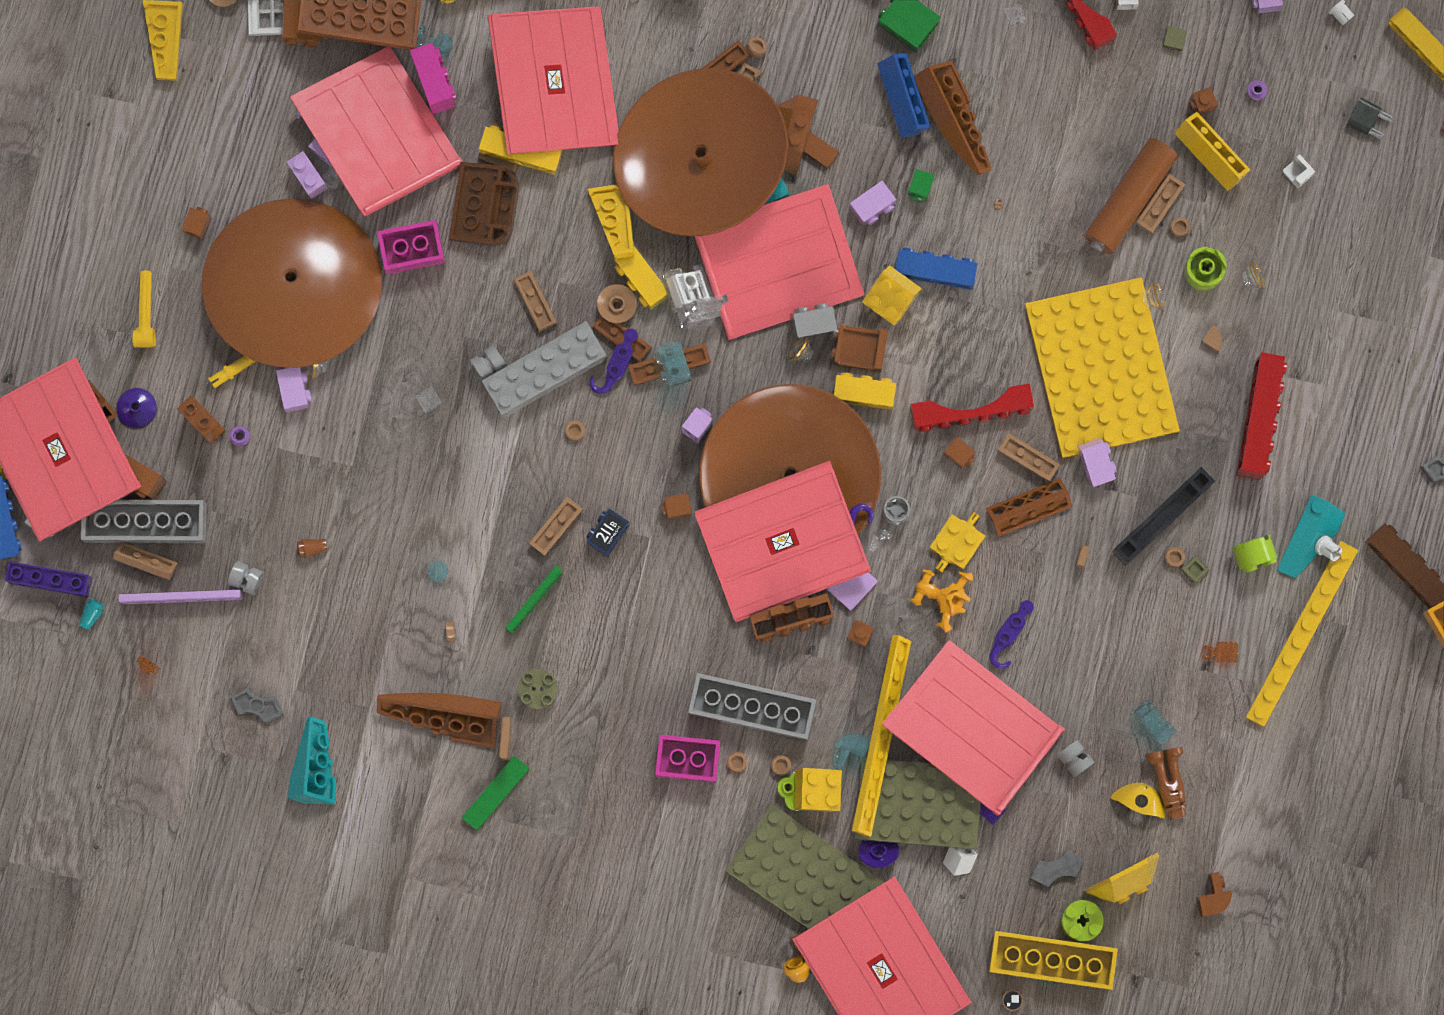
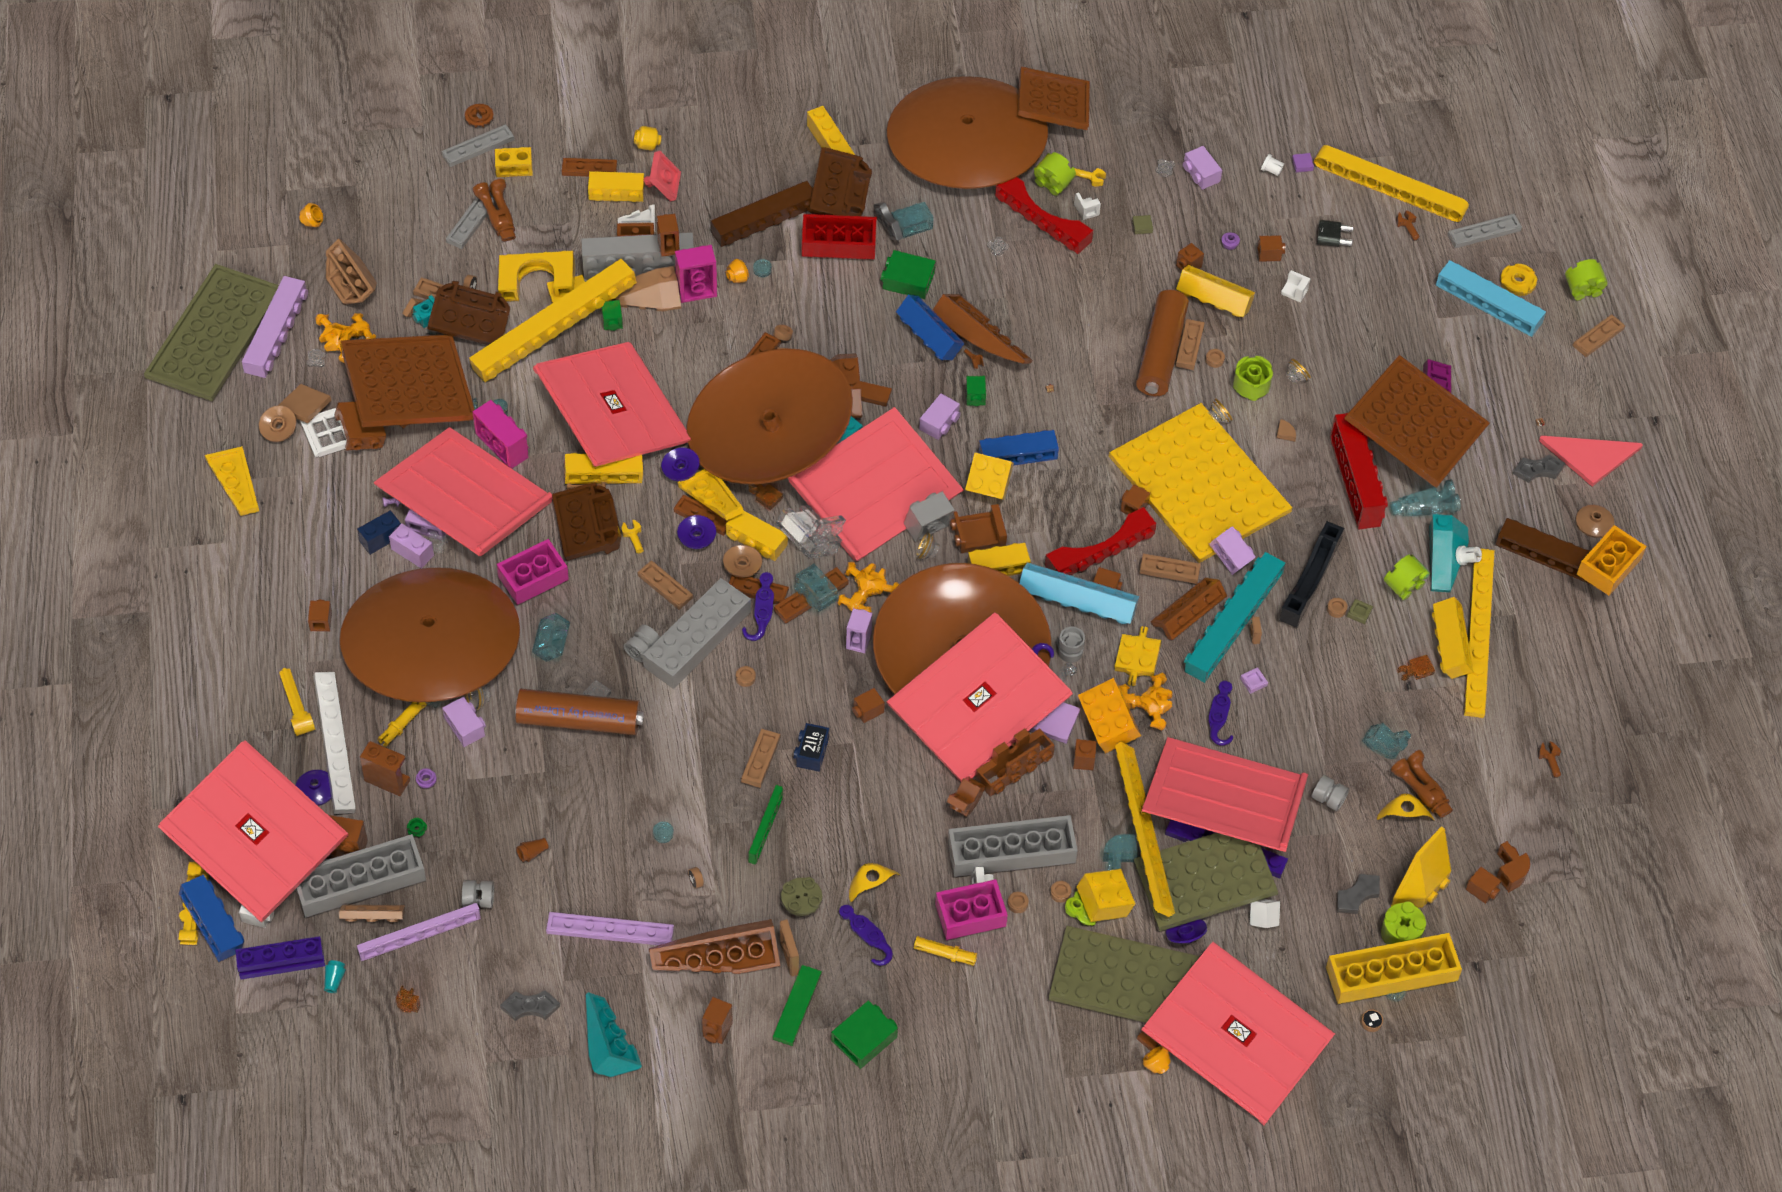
camera: 25 degrees left, 25 degrees down
(167, 366) = (334, 743): none -> white plate
(209, 485) = (416, 822): none -> green plate
(281, 148) = (376, 533): none -> dark blue brick
(355, 654) = (609, 929): none -> lavender tile
(401, 419) = (578, 711): none -> dark orange piece
(404, 326) = (551, 637): none -> clear light blue brick
(413, 789) = (717, 1020): none -> dark orange brick
(524, 234) = (633, 534): none -> yellow bar
(544, 846) = (864, 1034): none -> green brick
(581, 245) = (693, 526): none -> dark purple dish
(586, 743) = (867, 932): none -> dark purple piece
(591, 225) = (689, 507): none -> dark orange tile
(593, 162) = (680, 458): none -> dark purple dish
(624, 687) = (861, 883): none -> yellow piece
(650, 789) = (946, 951): none -> yellow pin
(670, 240) = (766, 495): none -> clear orange plate
(709, 730) = (978, 876): none -> white tile
(730, 372) = (869, 584): none -> light orange piece
(730, 638) = (966, 796): none -> dark orange brick
(899, 602) = (1109, 715): none -> light orange brick
(926, 456) = (1079, 593): none -> medium azure brick
(936, 146) = (976, 359): none -> dark orange hand
(1026, 369) = (1134, 499): none -> dark orange brick
(1058, 608) = (1254, 680): none -> lavender tile
(1069, 534) = (1234, 617): none -> teal brick
(1178, 906) = (1484, 885): none -> dark orange brick
(1269, 635) = (1452, 638): none -> yellow brick
(1293, 116) = (1270, 248): none -> dark orange brick
(1307, 795) = (1555, 751): none -> dark orange bar
(1316, 472) = (1428, 501): none -> clear light blue piece
(1344, 384) = (1417, 421): none -> dark orange plate
(1376, 17) = (1302, 162): none -> medium lavender tile
(1390, 339) = (1438, 370): none -> magenta piece

